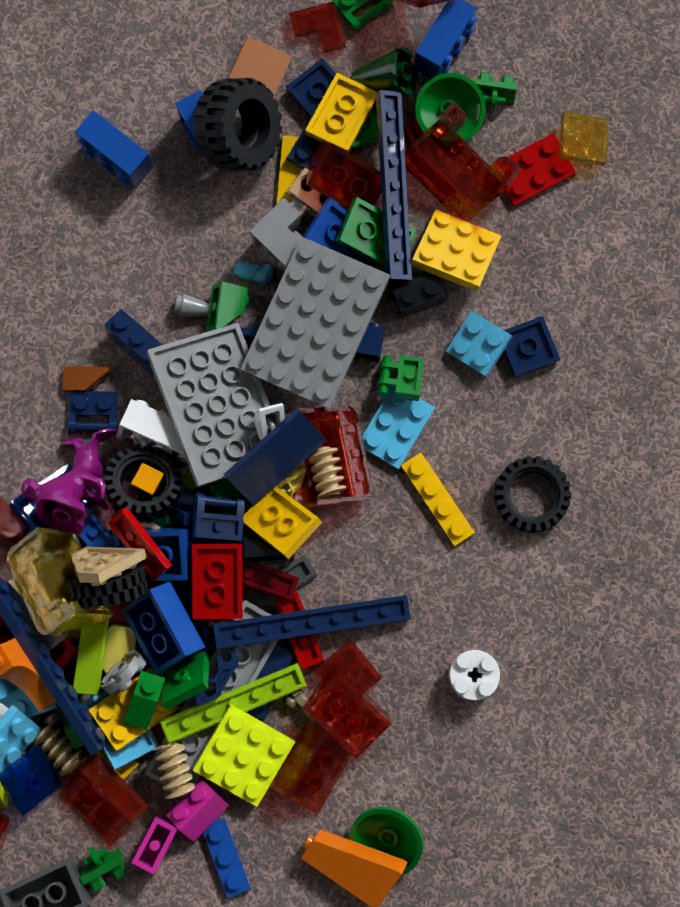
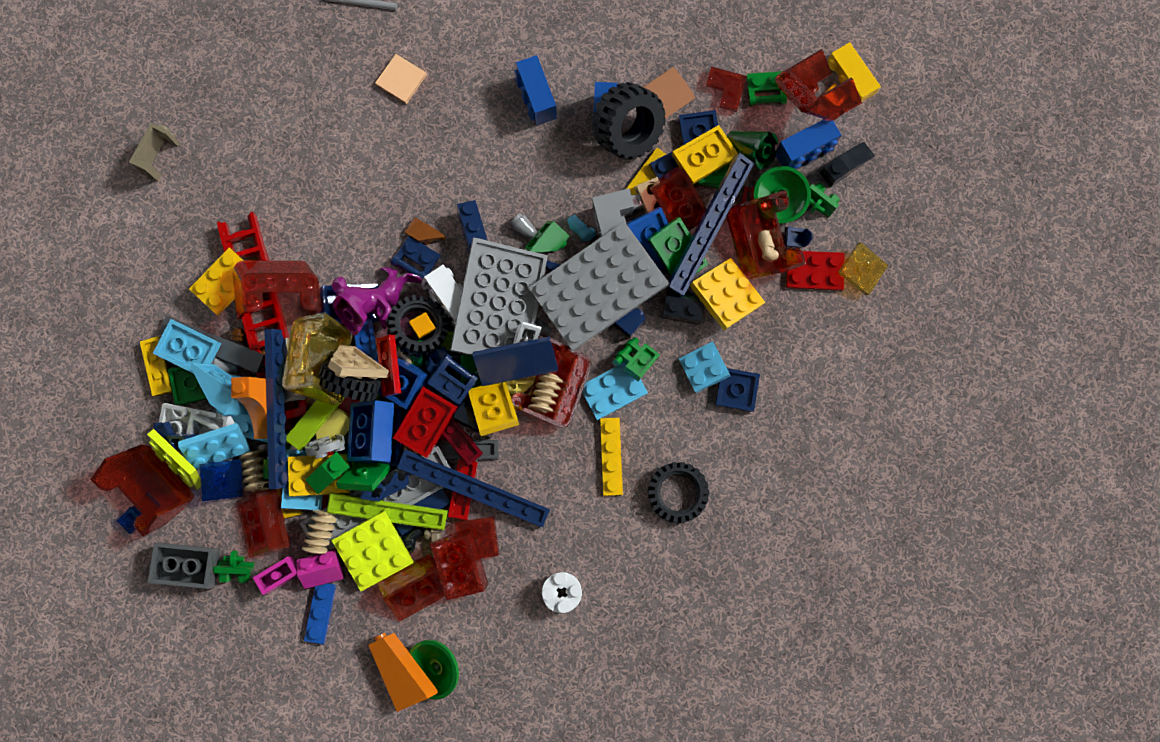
camera: 30 degrees right, 0 degrees up
(275, 718) = (410, 538): none -> black arm
(468, 174) = (767, 246): none -> tan arm
(494, 145) = (797, 237): none -> dark blue plate
(498, 35) = (846, 164): none -> black slope

